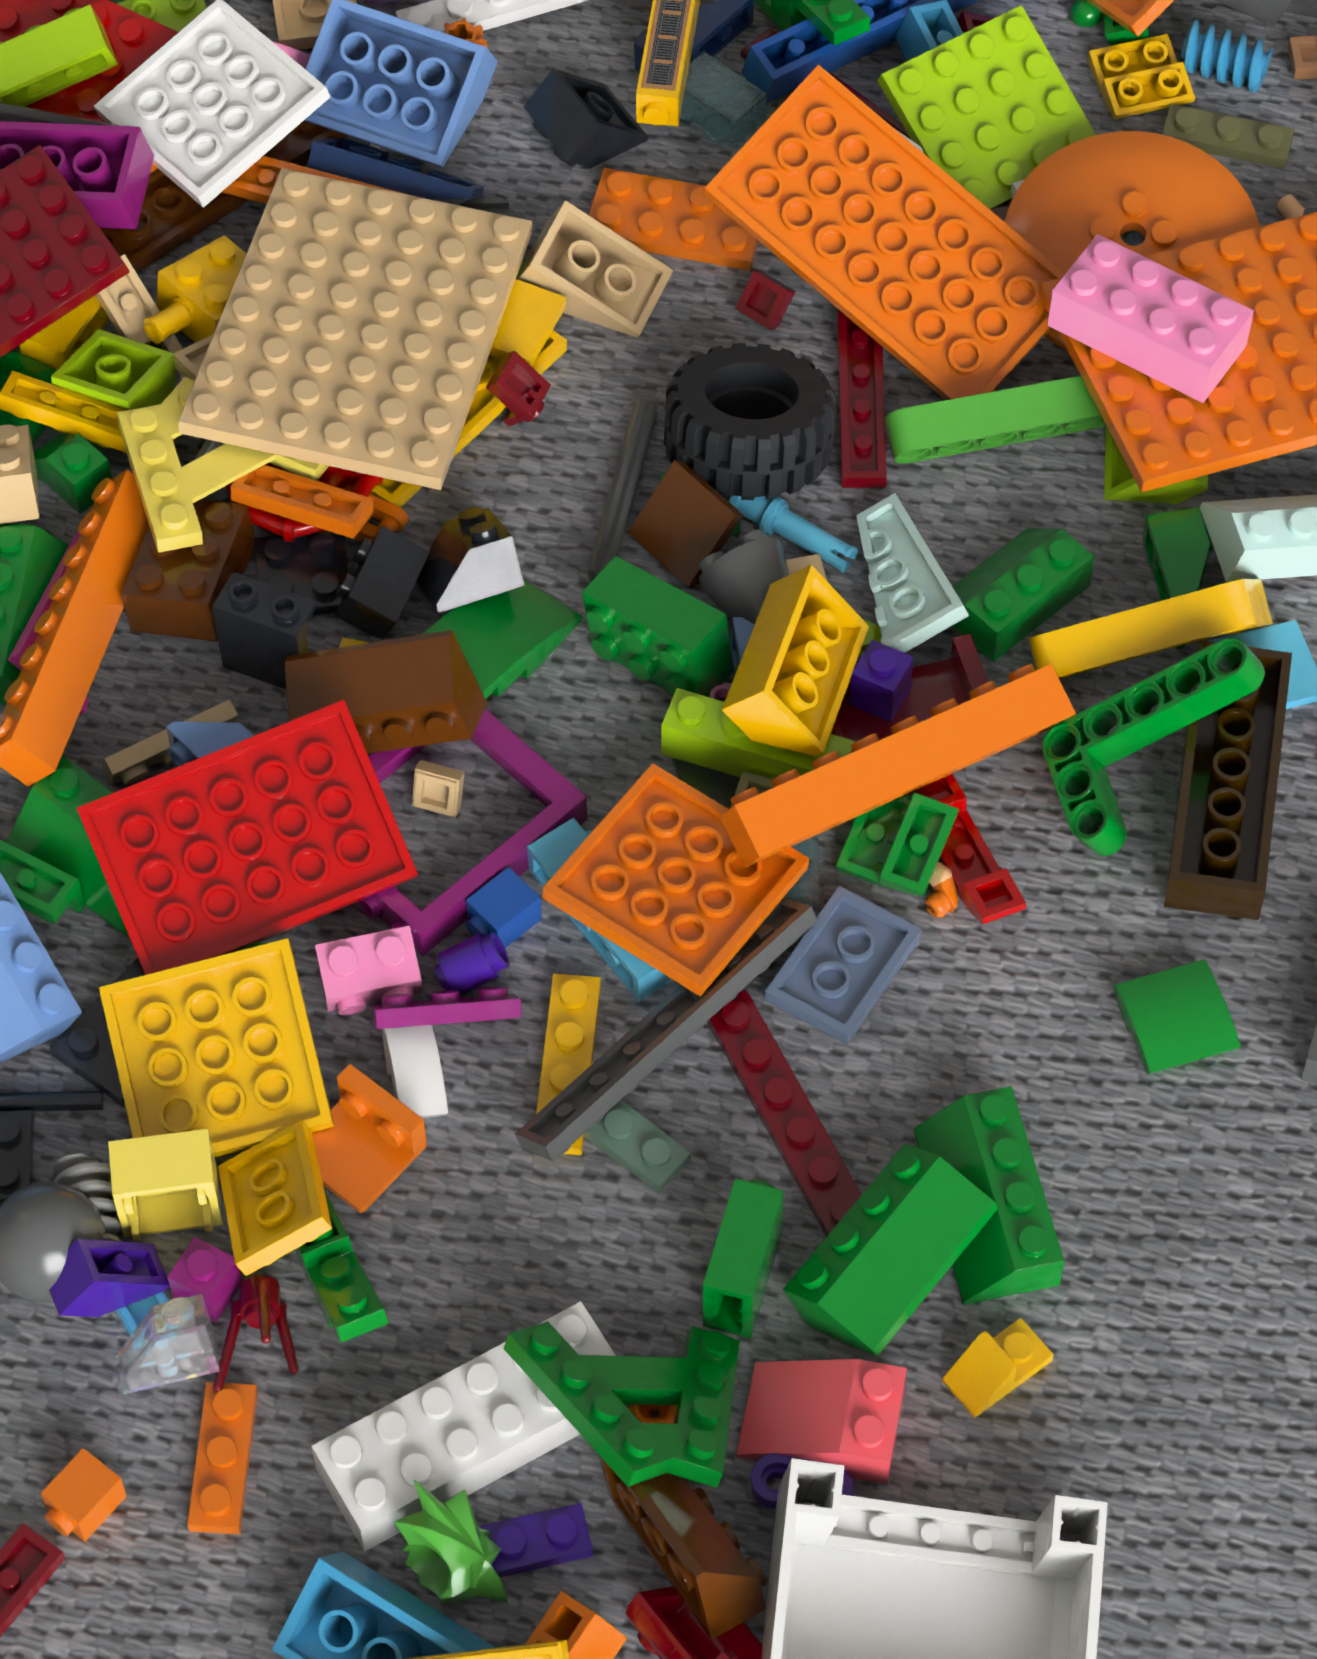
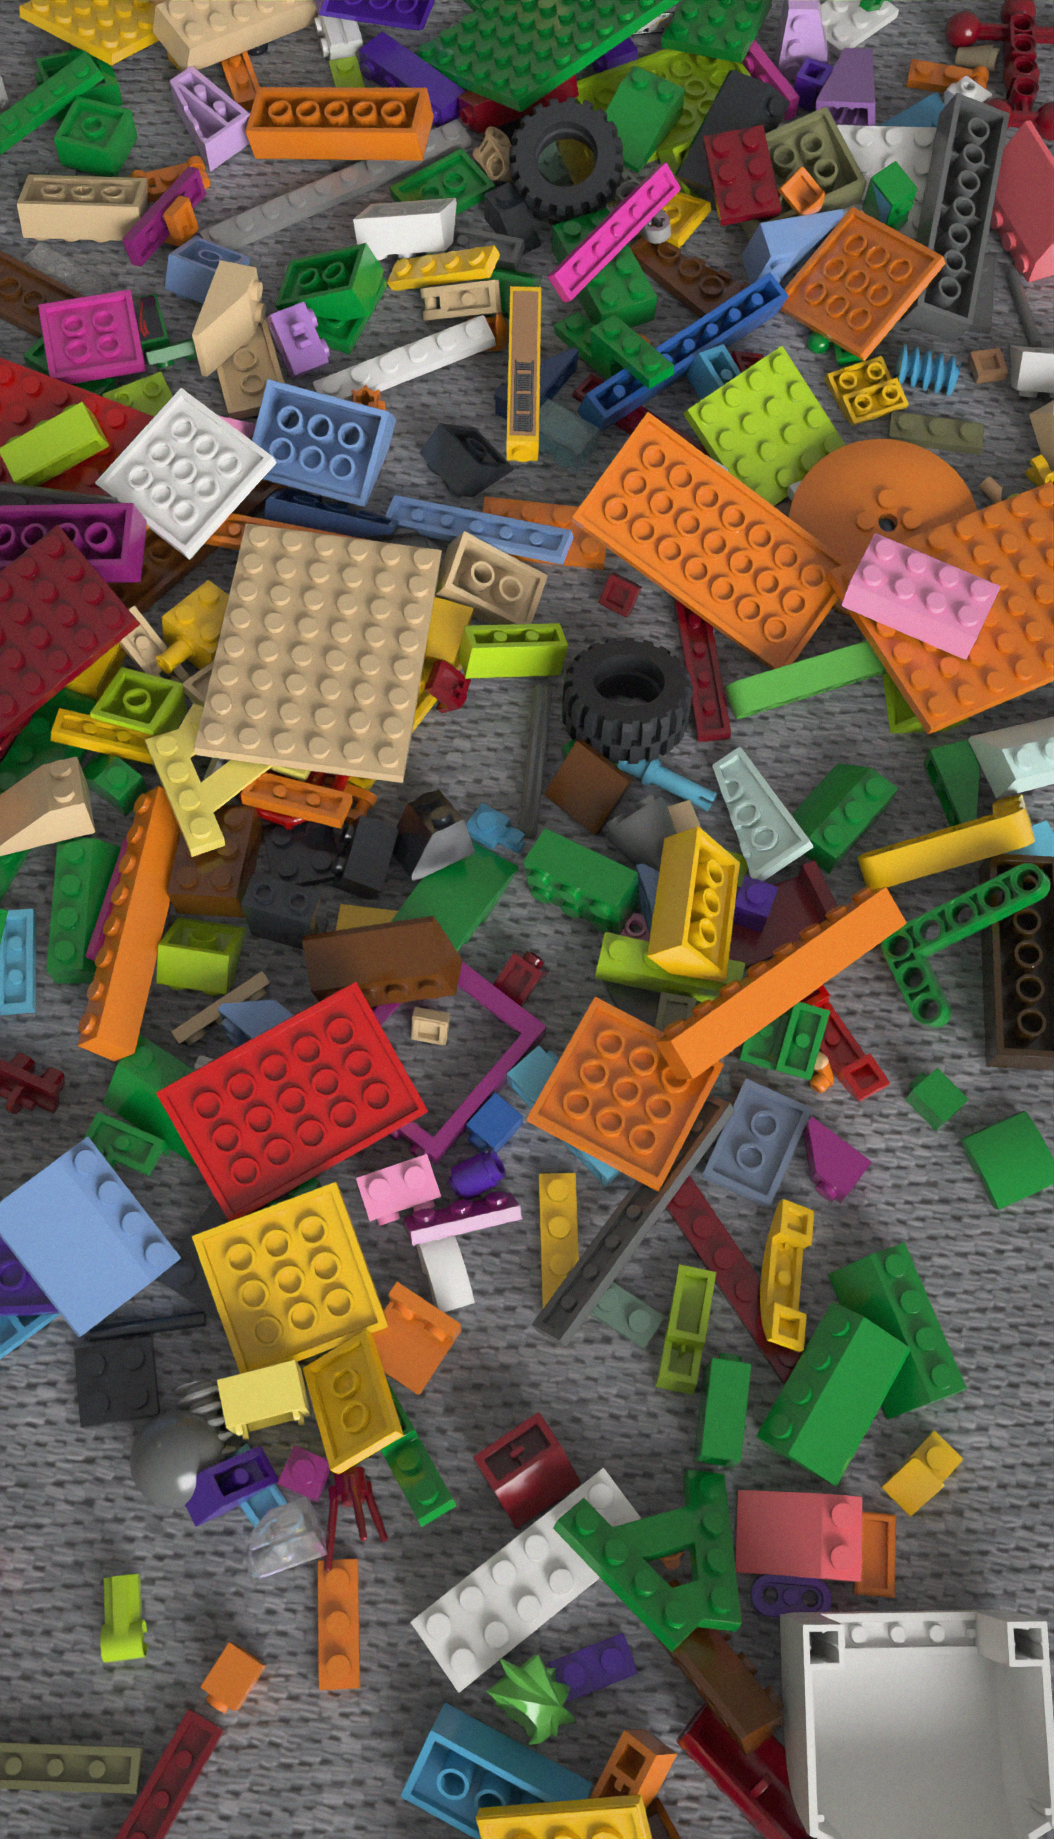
camera: 10 degrees left, 10 degrees up
(152, 681) = (200, 955): none -> lime slope
(481, 1295) = (527, 1470): none -> dark red slope
(553, 566) = (492, 828): none -> dark azure plate
(565, 740) = (521, 976): none -> dark red bracket
(609, 351) = (512, 650): none -> lime brick
(619, 209) = (501, 532): none -> medium blue plate
(712, 1167) = (686, 1330): none -> lime slope
(853, 1112) = (781, 1275): none -> yellow slope
(920, 1453) = (877, 1556): none -> orange tile
(940, 995) = (832, 1162): none -> magenta slope
(1087, 933) = (935, 1098): none -> green brick

